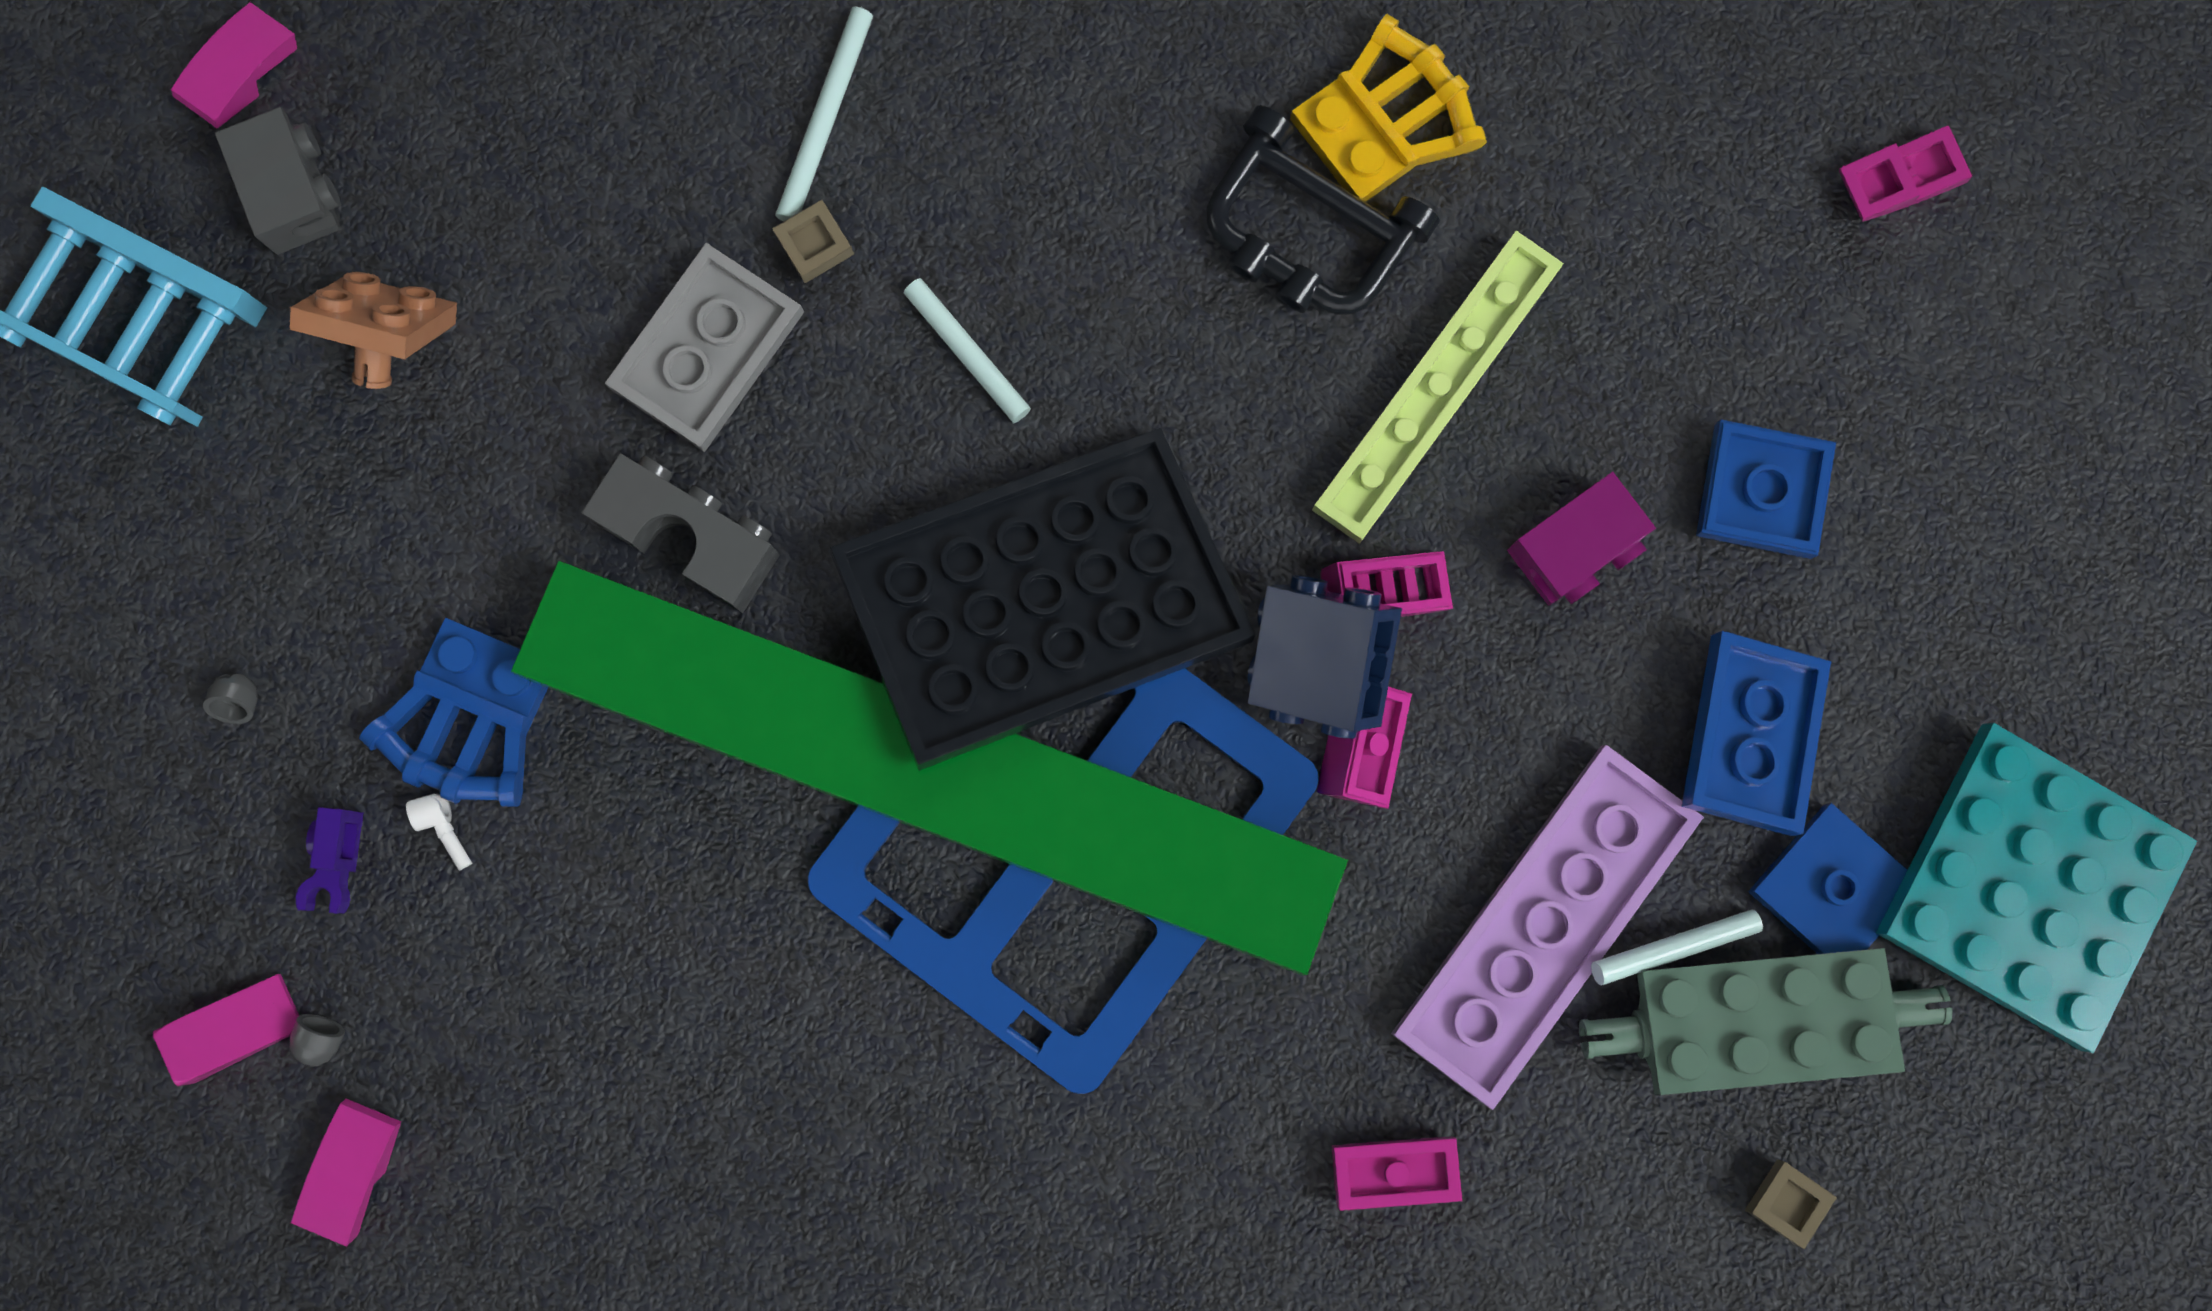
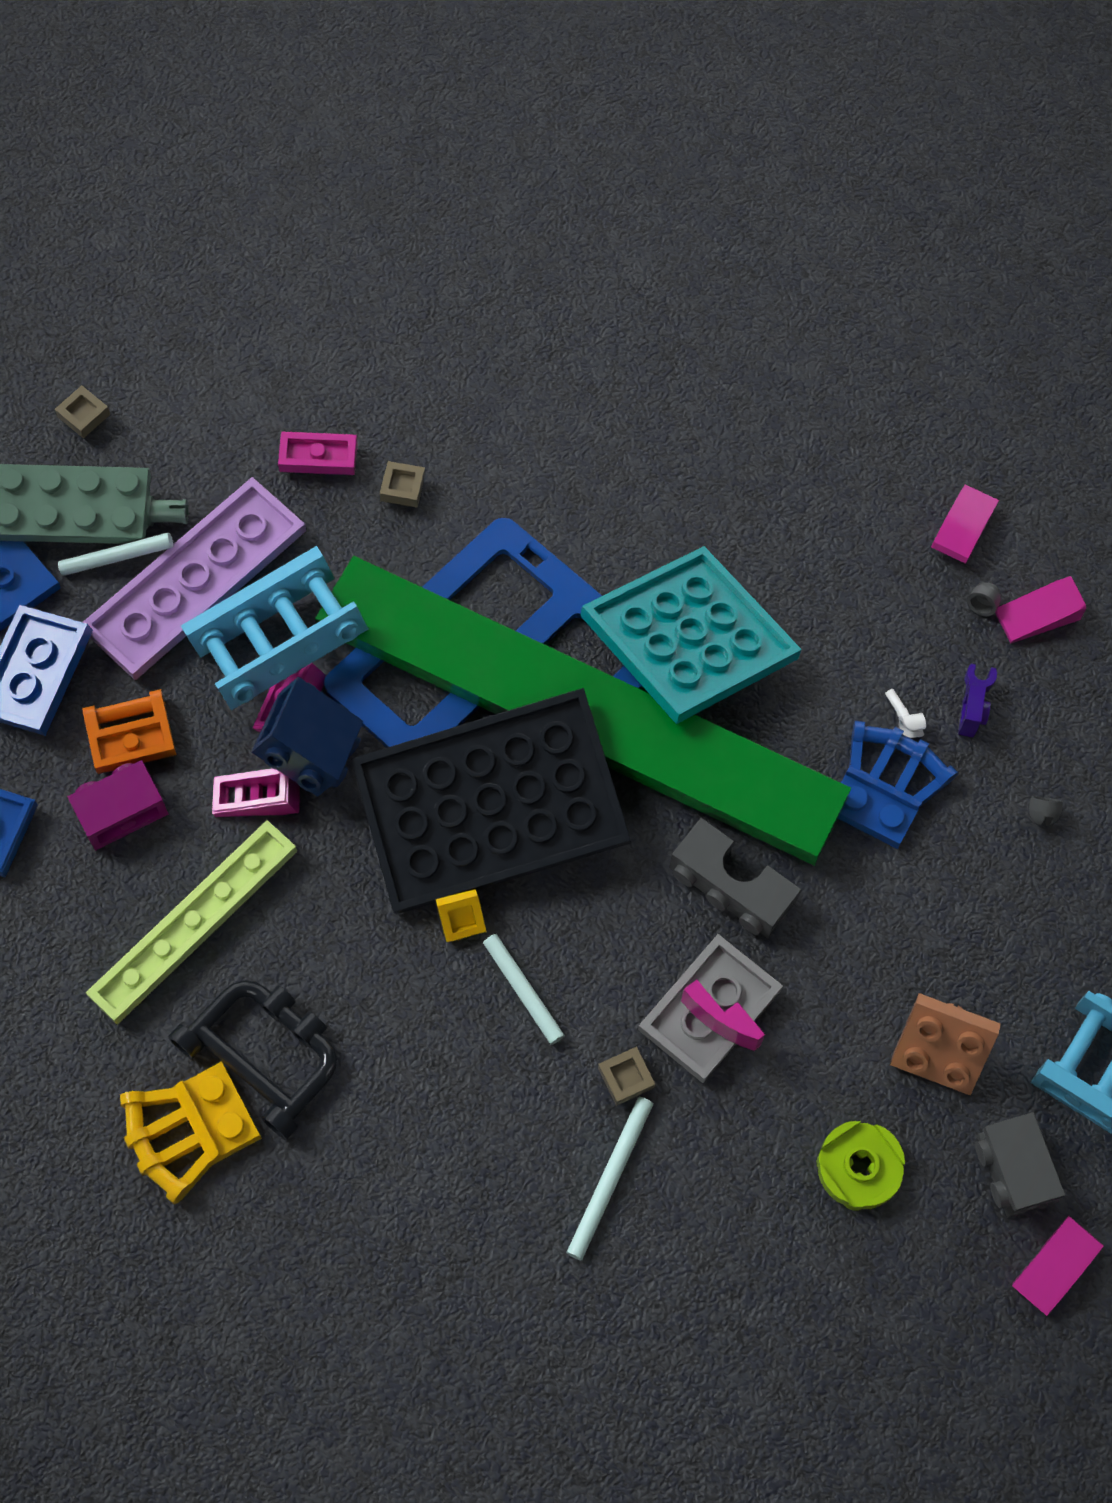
camera: 175 degrees left, 15 degrees down
(498, 130) = (863, 1140): none -> lime plate
(675, 307) = (732, 1024): none -> dark pink slope
(768, 904) = (690, 634): none -> teal plate
(1065, 434) = (461, 915): none -> yellow plate
(1252, 1132) = (402, 484): none -> dark tan plate
(1460, 858) = (259, 602): none -> medium azure fence
(1586, 641) = (132, 741): none -> orange plate

